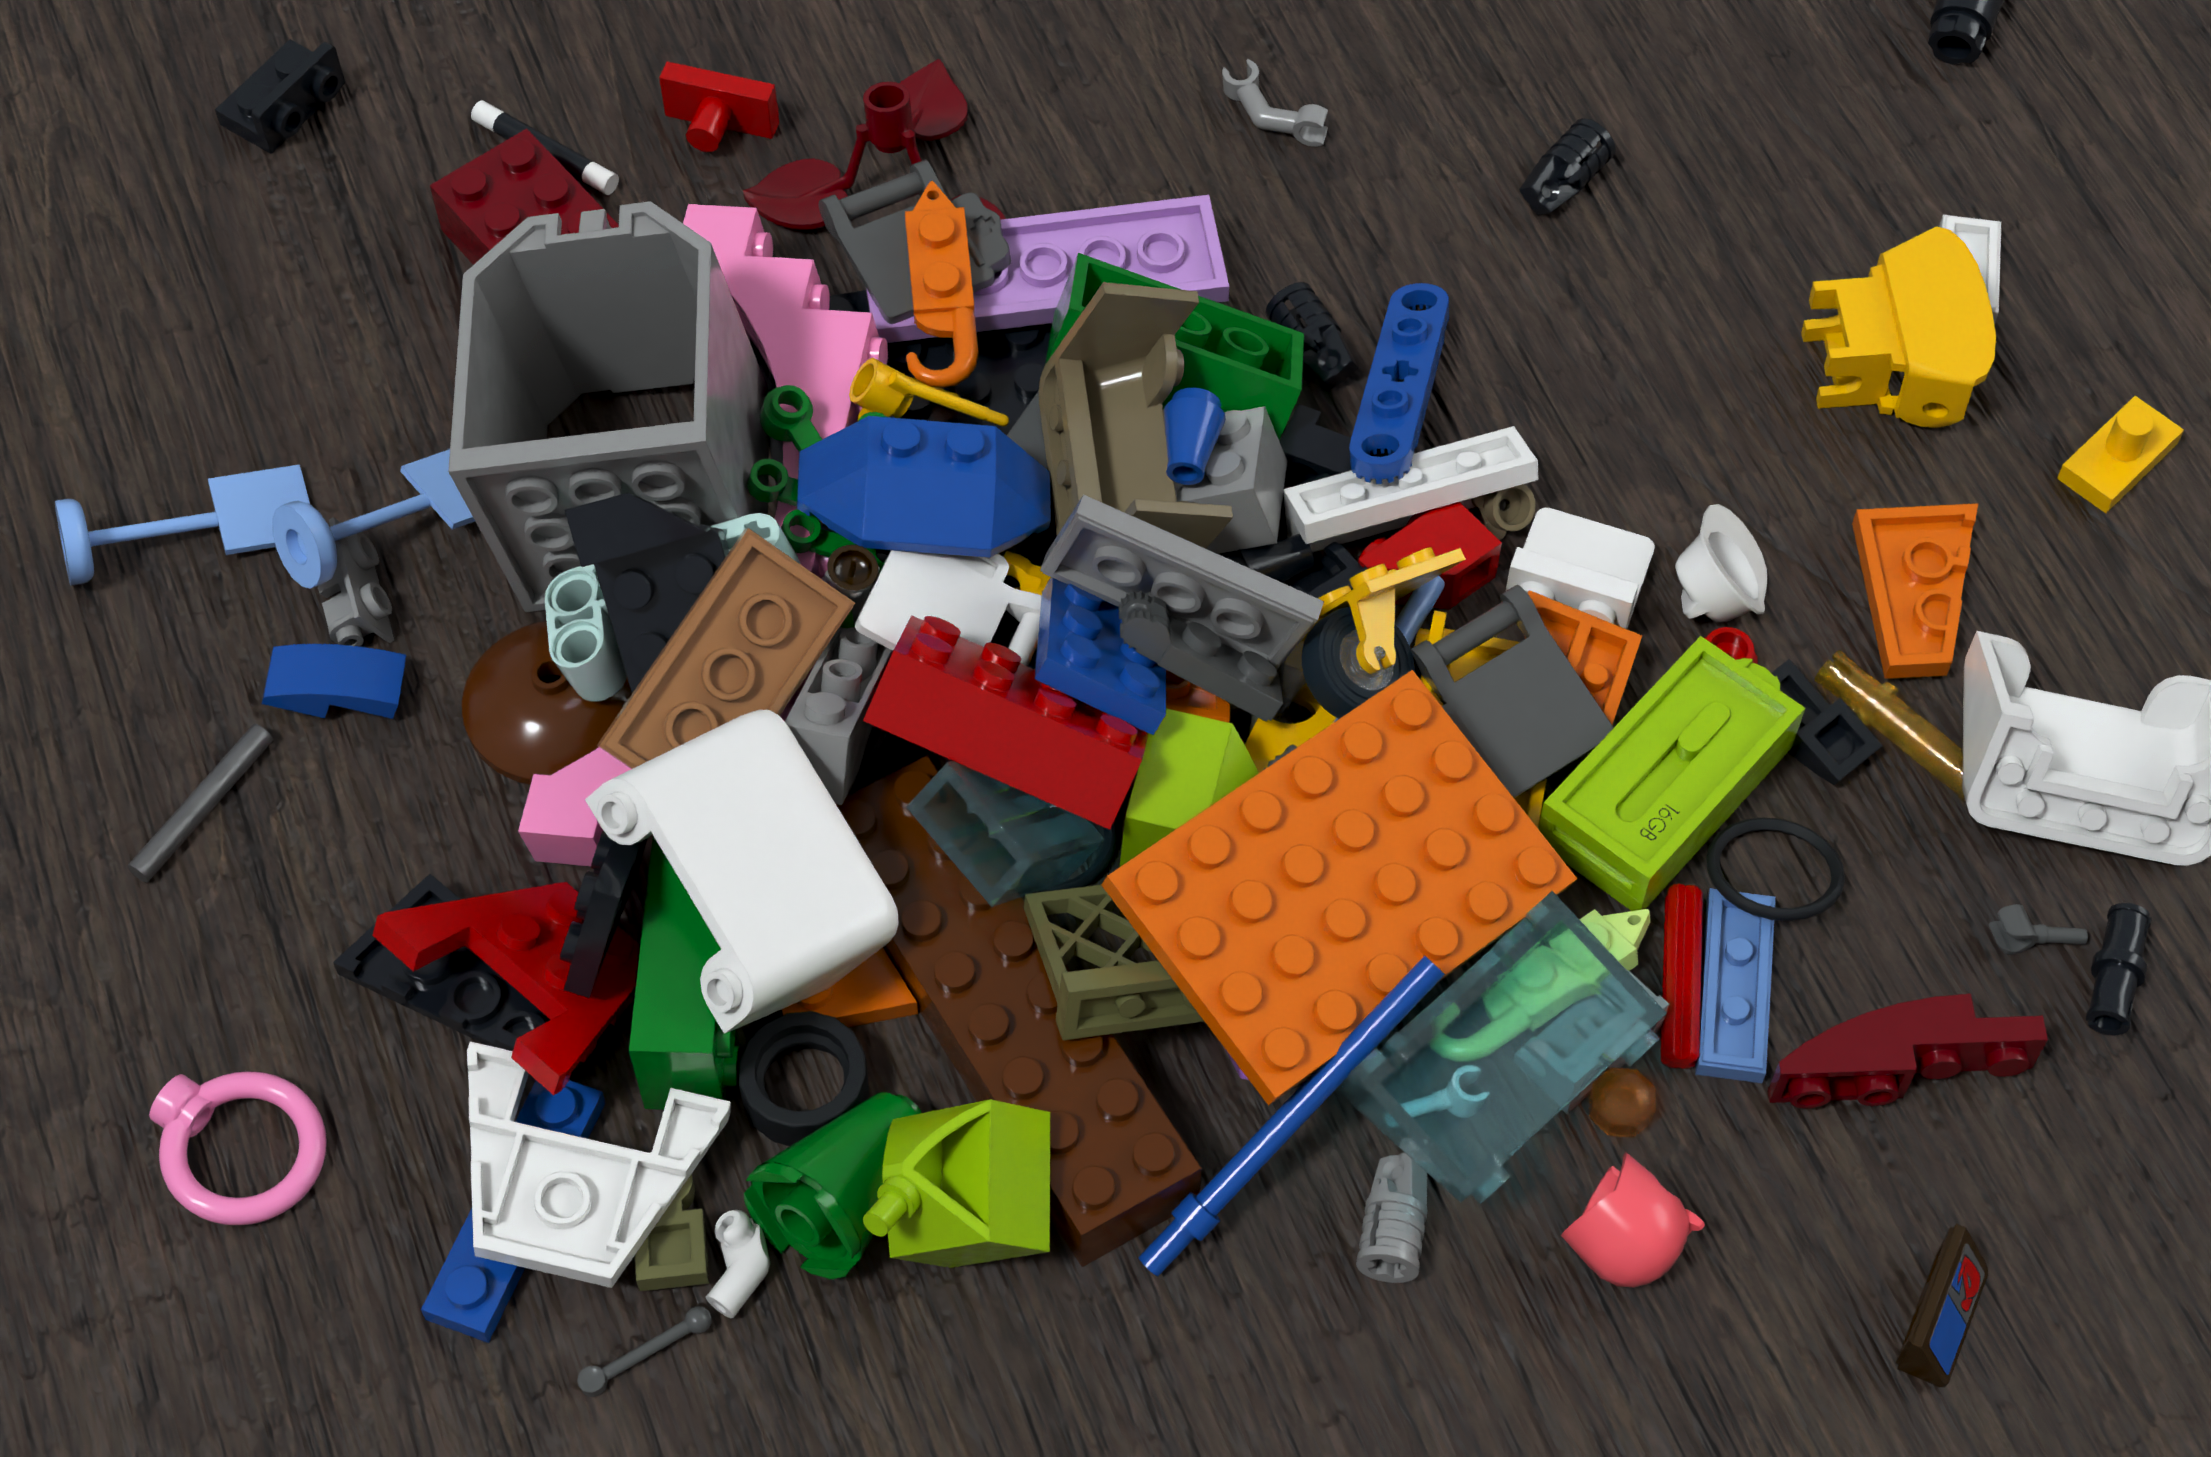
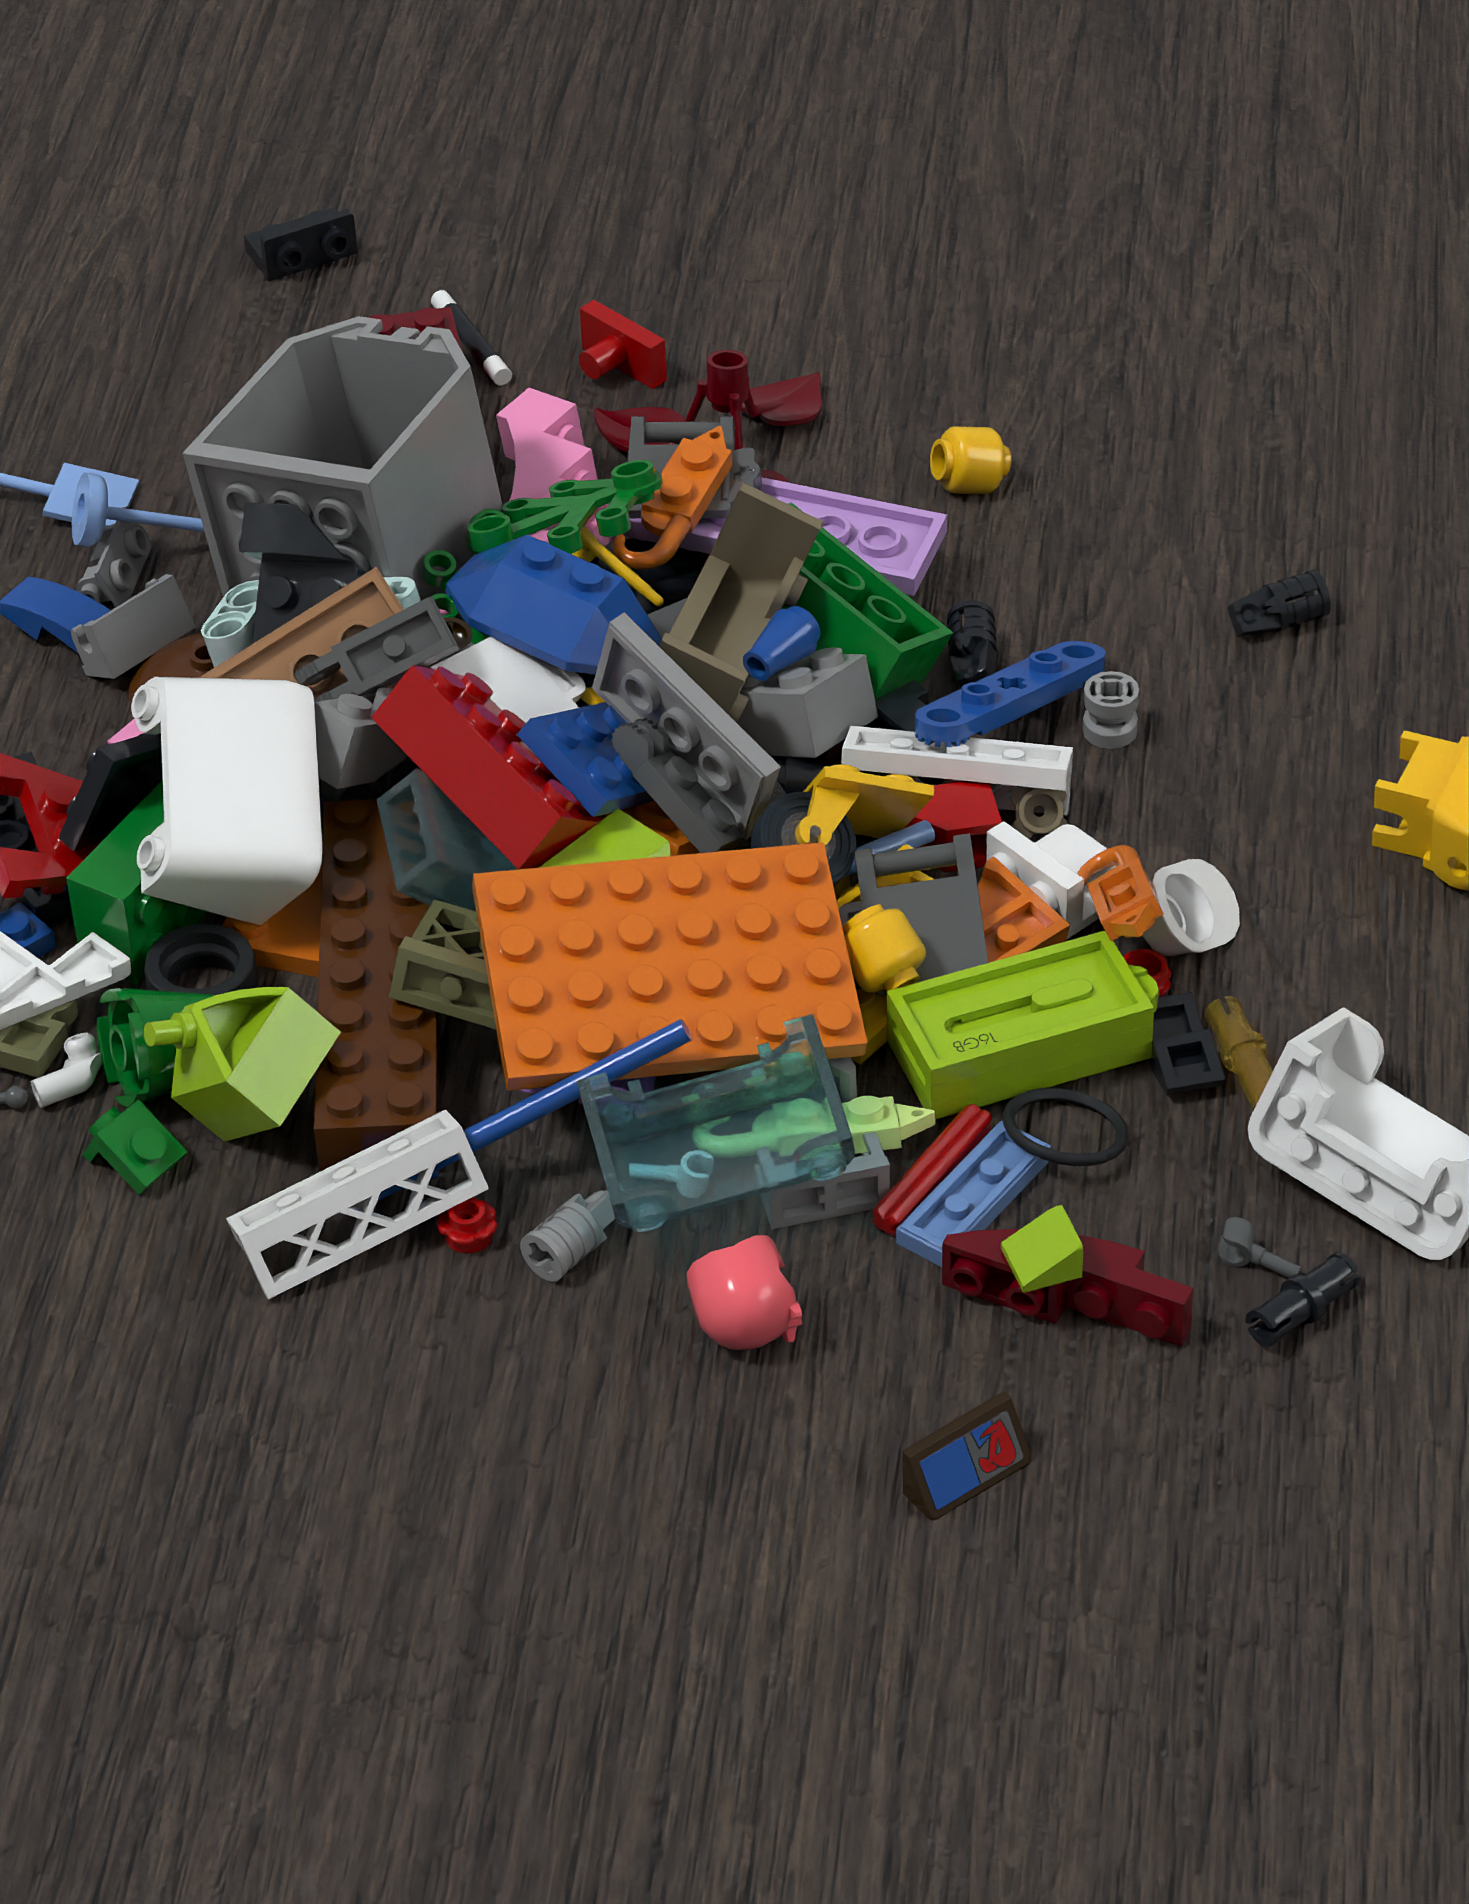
camera: 30 degrees right, 15 degrees down
(446, 671) = (133, 629): none -> light grey hinge
(809, 627) = (383, 652): none -> dark grey hinge
(874, 1328) = (134, 1145): none -> green bracket
(909, 299) = (571, 506): none -> green plant
(1164, 111) = (970, 460): none -> yellow head
(1165, 1289) = (349, 1183): none -> white fence
(1273, 1273) = (468, 1225): none -> red plate
(1304, 124) = (1056, 494): light grey arm -> none
(1495, 356) = (1110, 711): none -> light grey wheel
(1519, 754) = (883, 949): none -> yellow head
(1622, 1102) = (816, 1231): clear orange tile -> none
(1689, 585) = (1122, 894): none -> orange plate
(1896, 1044) = (1045, 1251): none -> lime slope
(1915, 582) = (1355, 969): orange wing -> none

